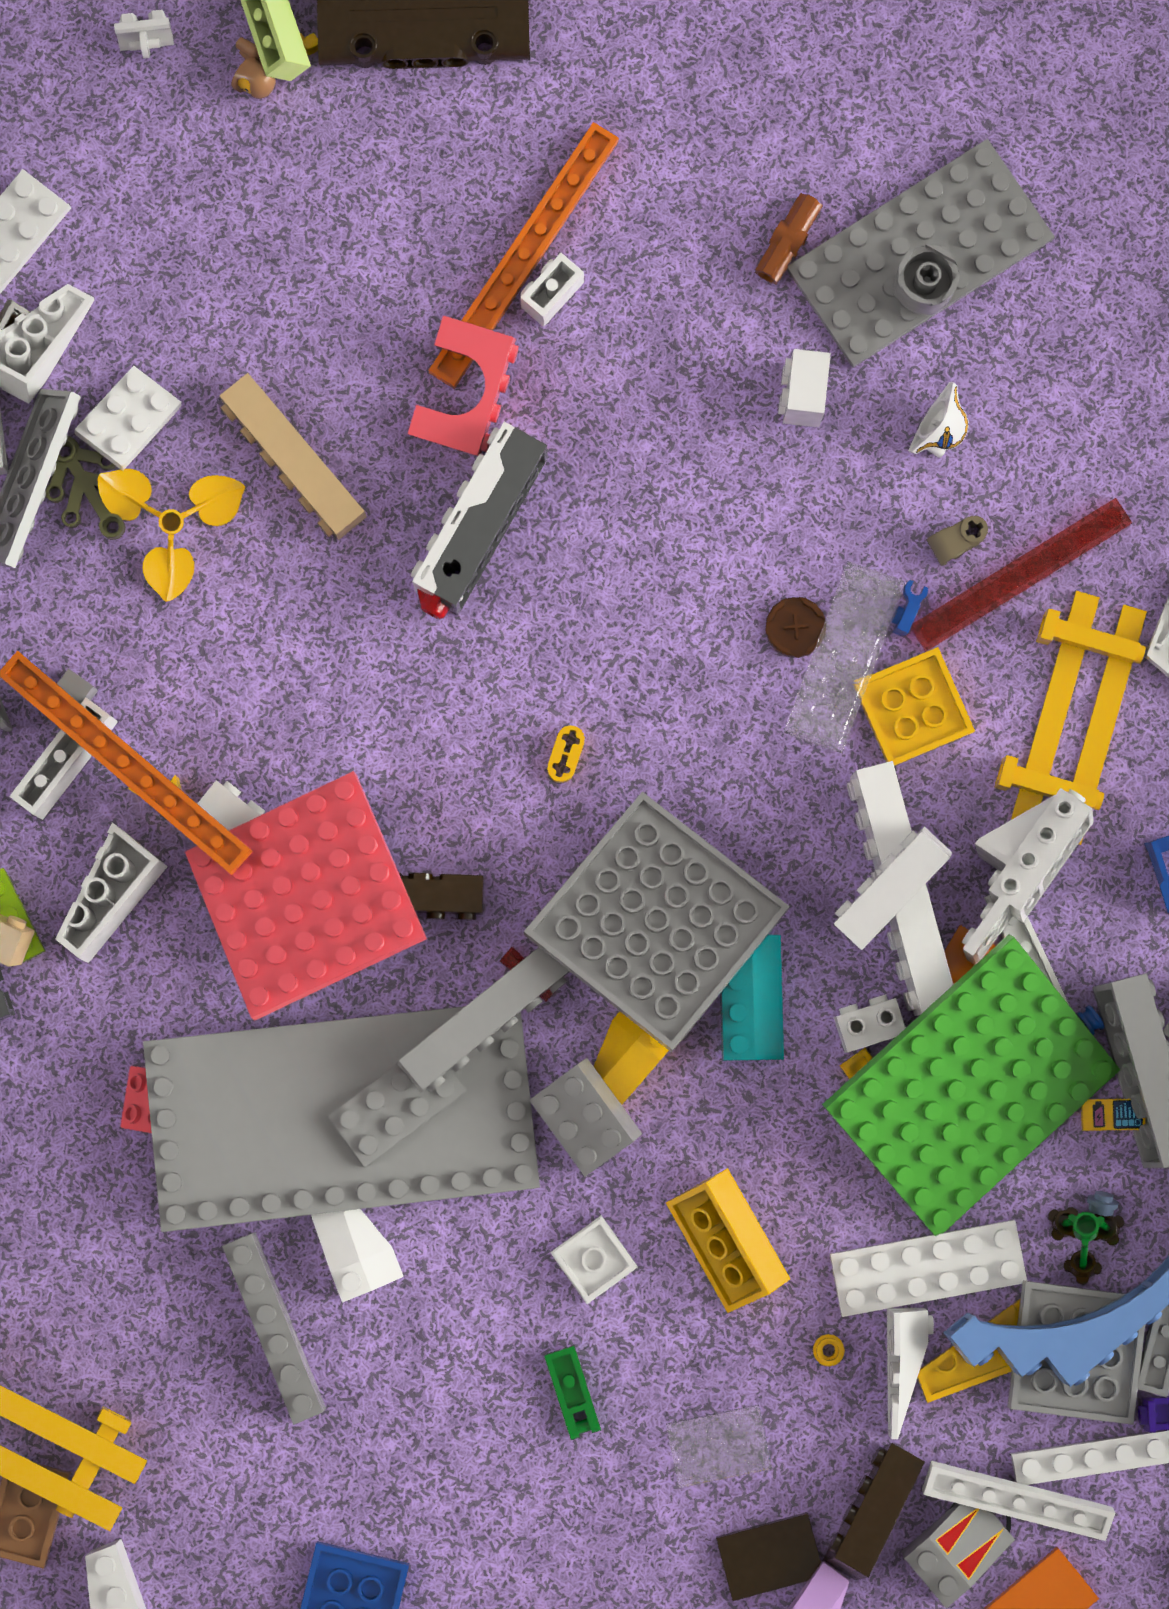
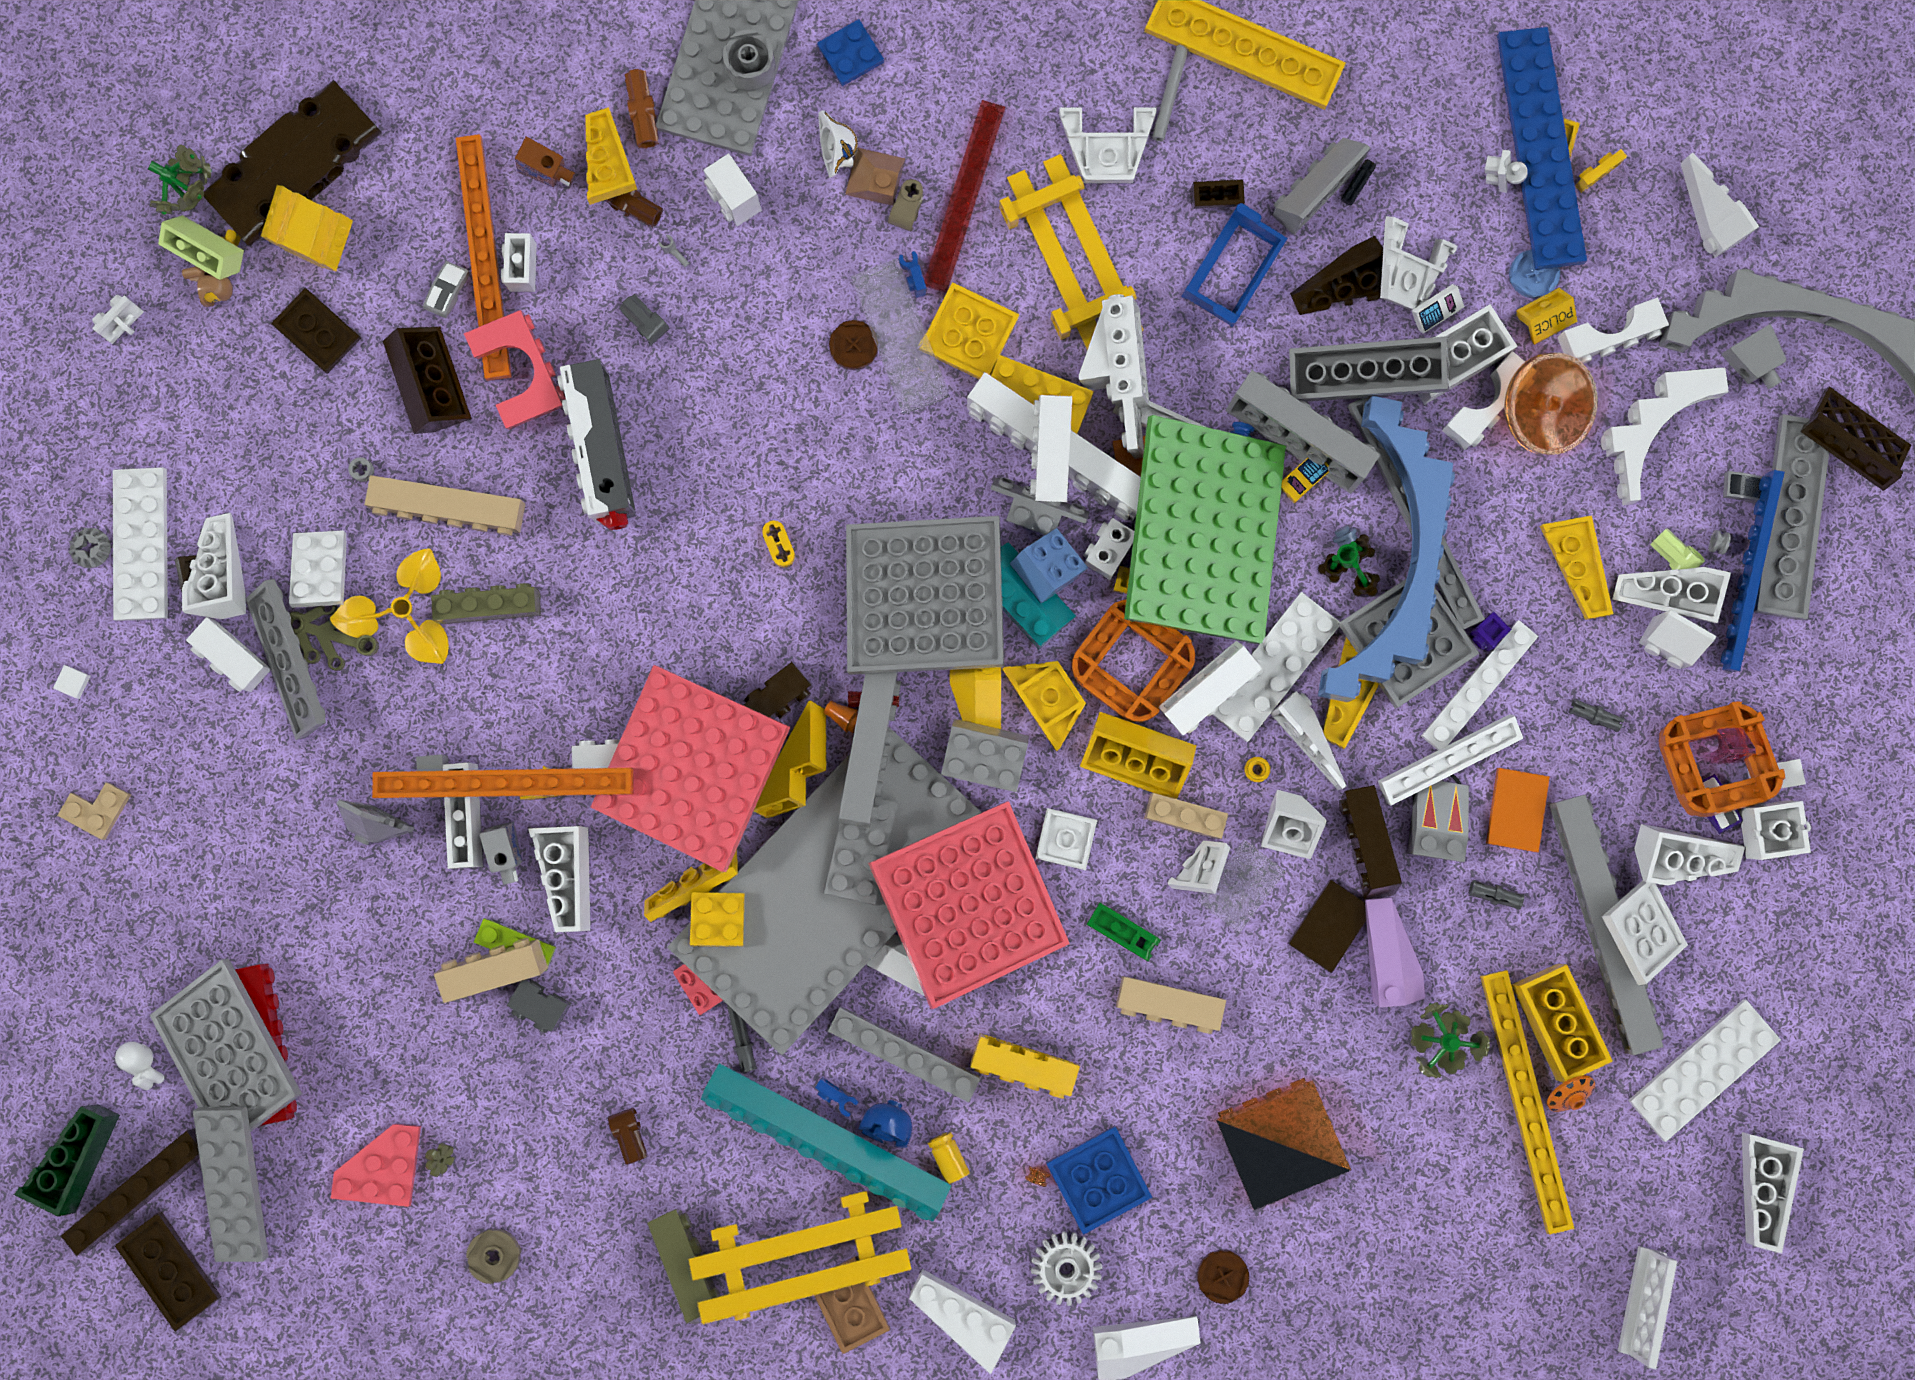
camera: 40 degrees left, 0 degrees up
(78, 811) = (503, 840): none -> light grey torso
(133, 1347) = (825, 1143): none -> teal brick
(136, 1188) = (743, 1044): none -> dark grey axle
(176, 1301) = (831, 1092): none -> blue plate
(203, 1378) = (887, 1123): none -> blue cylinder
(209, 1056) = (717, 919): none -> yellow plate
(213, 1002) = (679, 894): none -> yellow wing
(232, 1458) = (948, 1157): none -> yellow piece
(236, 361) = (353, 465): none -> light grey bush
(250, 582) = (486, 605): none -> olive brick
(298, 1547) = (1037, 1176): none -> clear orange bush
(313, 194) = (316, 330): none -> dark brown tile
(374, 1435) = (1024, 1065): none -> yellow wedge
(375, 325) = (426, 378): none -> dark brown slope
(384, 95) = (306, 229): none -> yellow slope
(414, 972) = (800, 758): none -> yellow slope
(451, 1243) = (969, 904): none -> coral plate
(463, 255) = (445, 288): none -> slope
(487, 965) = (842, 715): none -> orange cone
(558, 1498) = (1170, 1003): none -> tan brick
(622, 446) = (647, 323): none -> dark grey piece
(647, 203) = (534, 159): none -> dark orange torso
(691, 1113) = (1048, 697): none -> yellow wing
(696, 1398) = (1203, 868): none -> white wing
(701, 311) = (638, 207): none -> reddish brown piece
(704, 397) = (671, 248): none -> light grey hand
(711, 265) = (606, 160): none -> yellow wing
(723, 1336) = (1186, 816): none -> tan brick
(755, 1161) = (1112, 692): none -> orange plate
(797, 991) = (1048, 565): none -> medium blue brick
(815, 1432) = (1292, 825): none -> white slope
(827, 939) = (1036, 515): none -> light grey bracket
(849, 1237) = (1210, 688): none -> white brick
(929, 808) = (1032, 382): none -> yellow wedge
(952, 485) = (875, 176): none -> medium nougat slope
(1030, 348) = (850, 52): none -> blue plate

